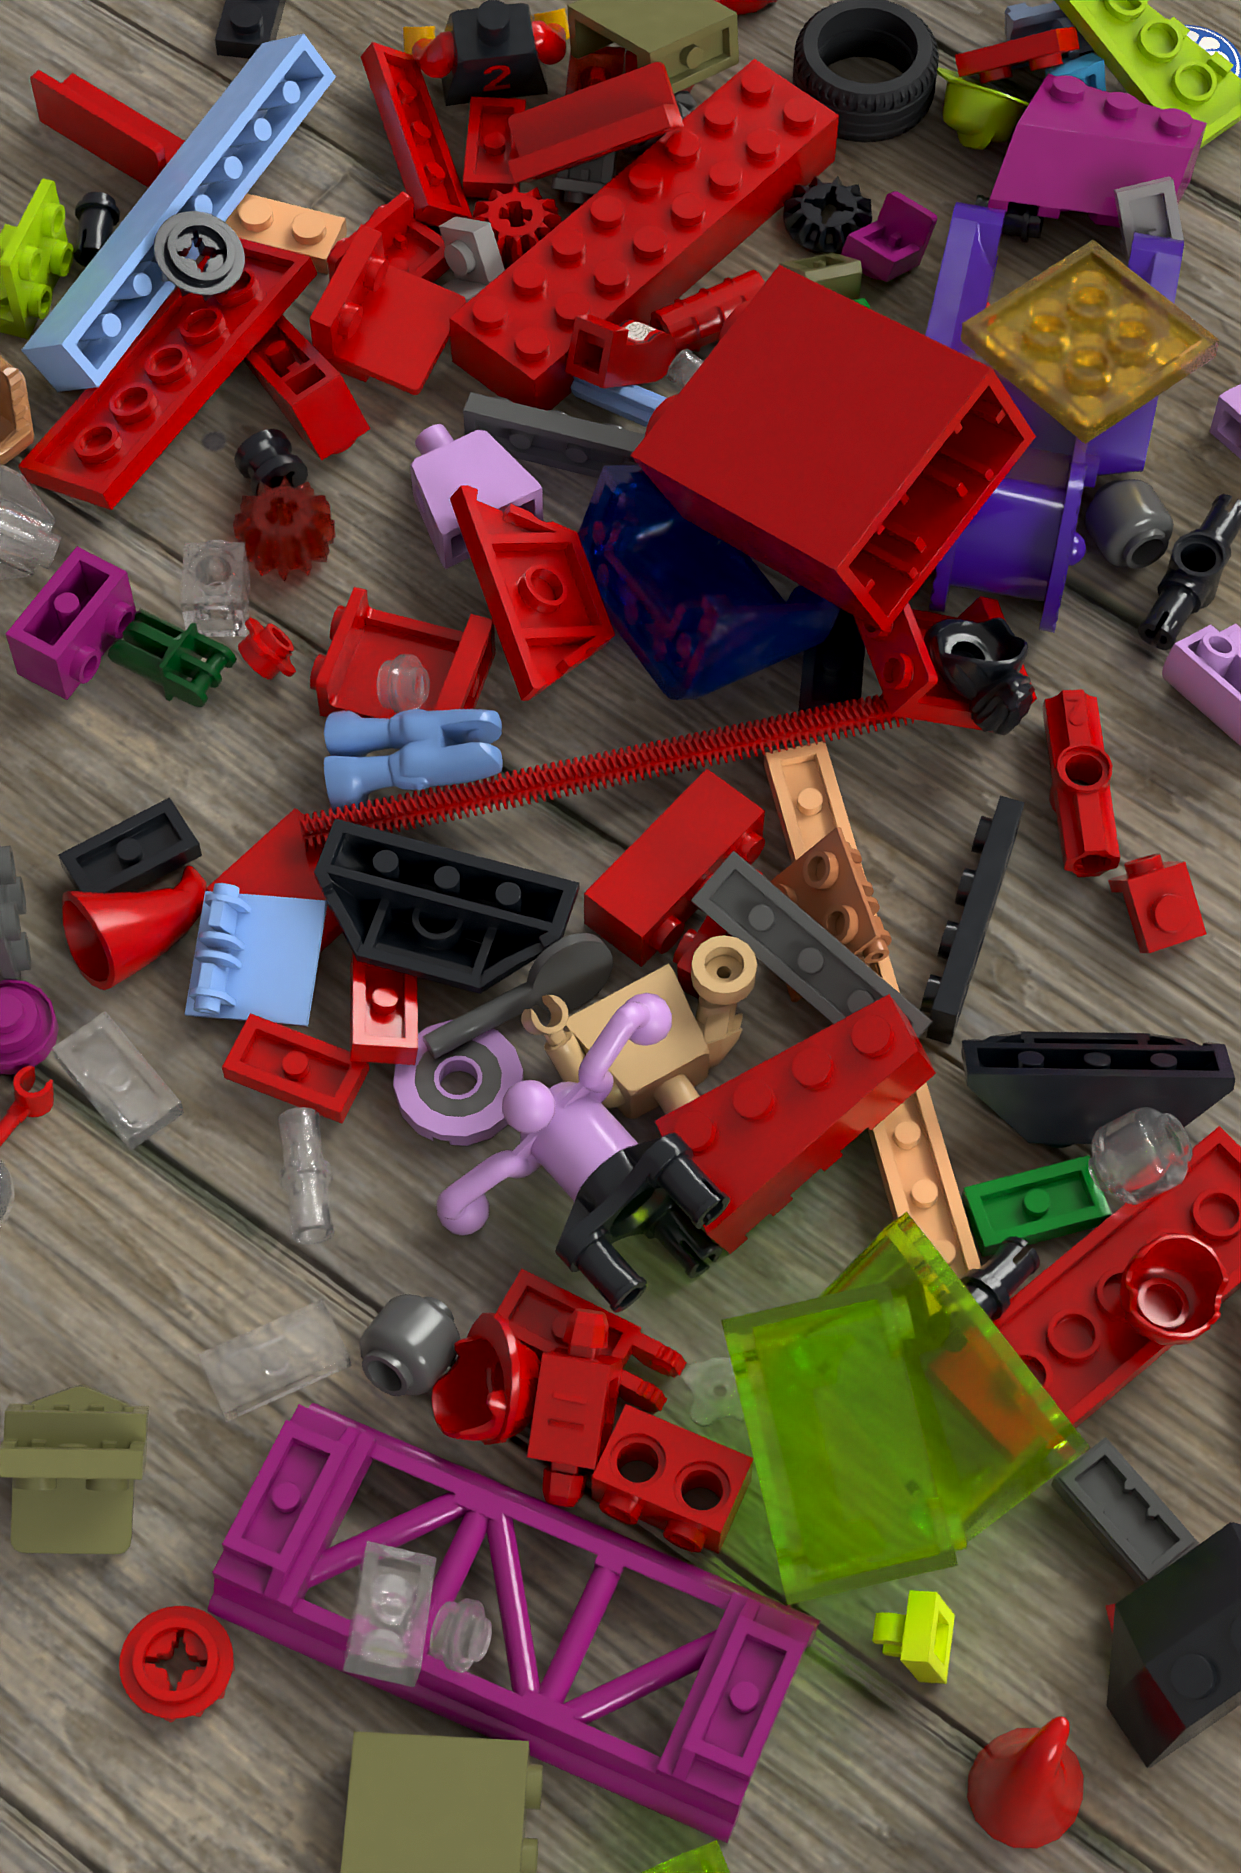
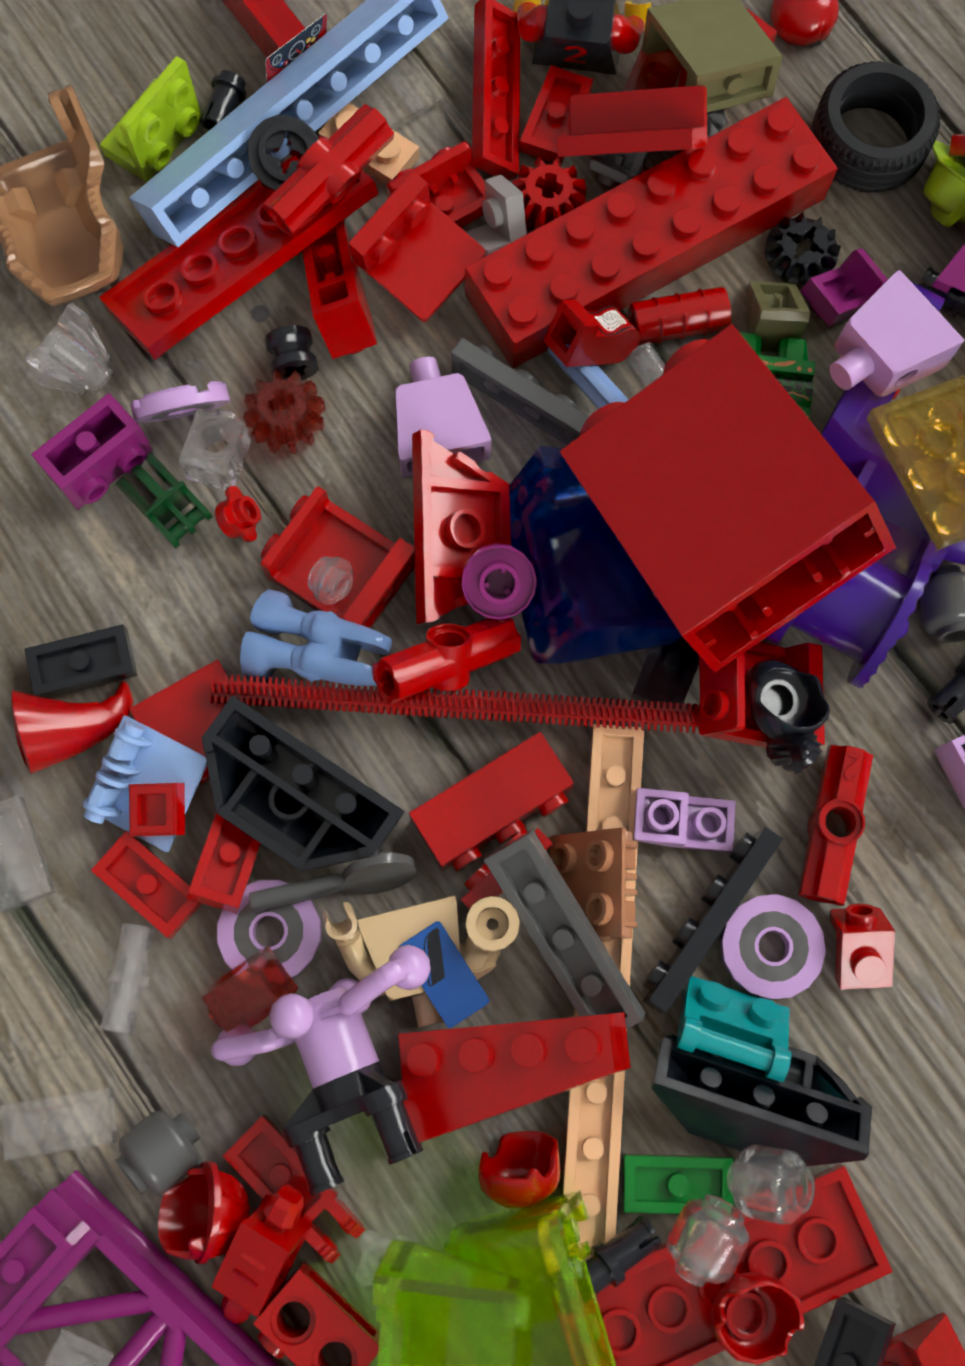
camera: 15 degrees right, 15 degrees up
(160, 539) = (179, 402): none -> lavender tile
(168, 146) = (295, 47): none -> sticker
(258, 254) = (329, 170): none -> red piece
(281, 976) = (157, 809): none -> red tile
(458, 1135) = (248, 991): none -> clear red brick
(570, 720) = (445, 658): none -> red piece
(603, 624) = (498, 581): none -> magenta plate
(695, 1053) = (450, 982): none -> blue sticker
(844, 1233) = (522, 1169): none -> red hair
(906, 830) = (684, 821): none -> lavender slope
(962, 253) = (893, 340): none -> lavender torso
(1062, 902) = (802, 942): none -> lavender tile
(1063, 1011) = (735, 1027): none -> teal plate
(1089, 1231) = (707, 1241): none -> clear head

